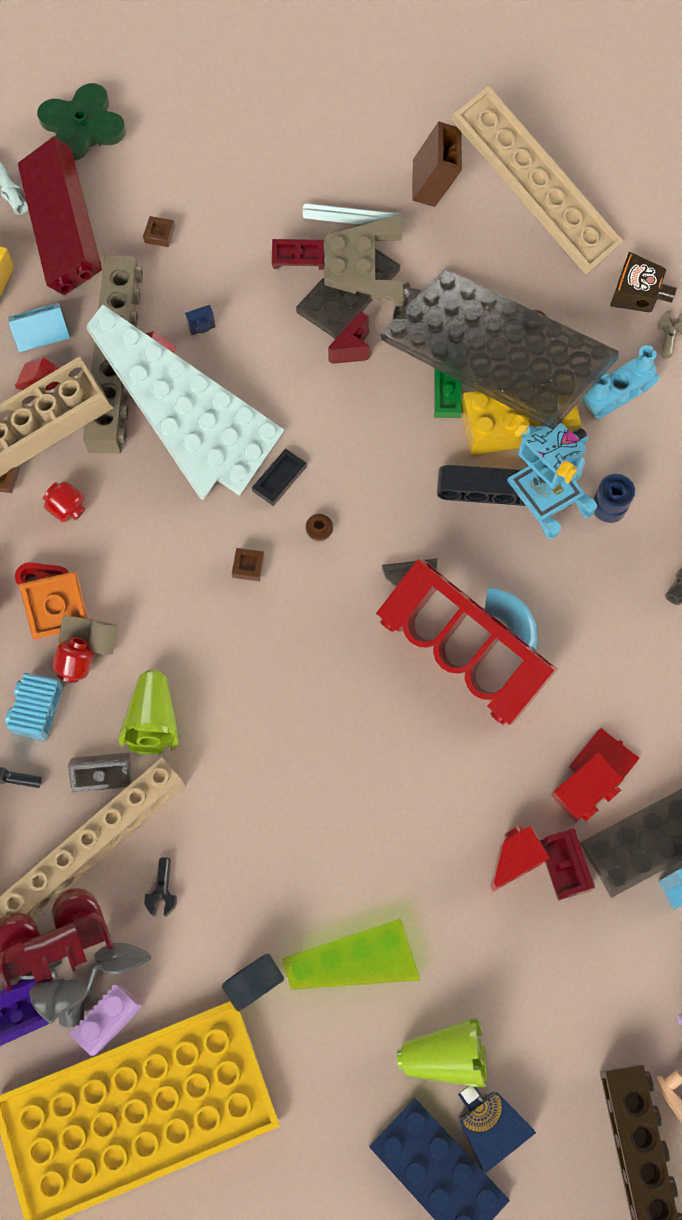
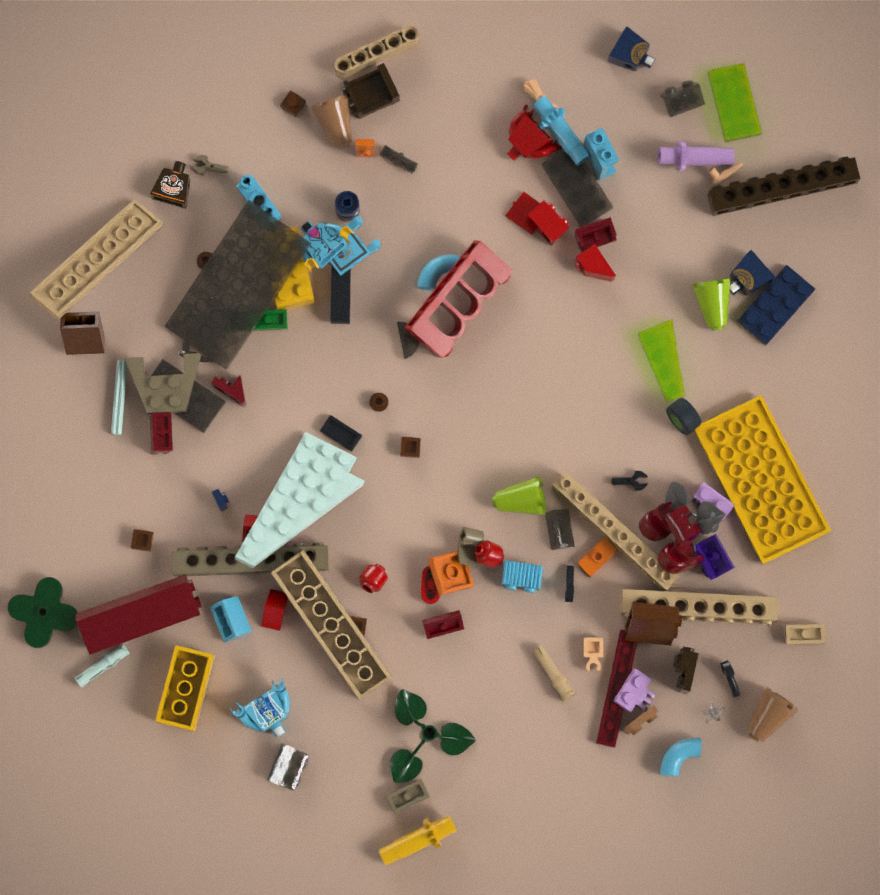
camera: 100 degrees left, 10 degrees up
(46, 822) = (597, 557): none -> orange plate

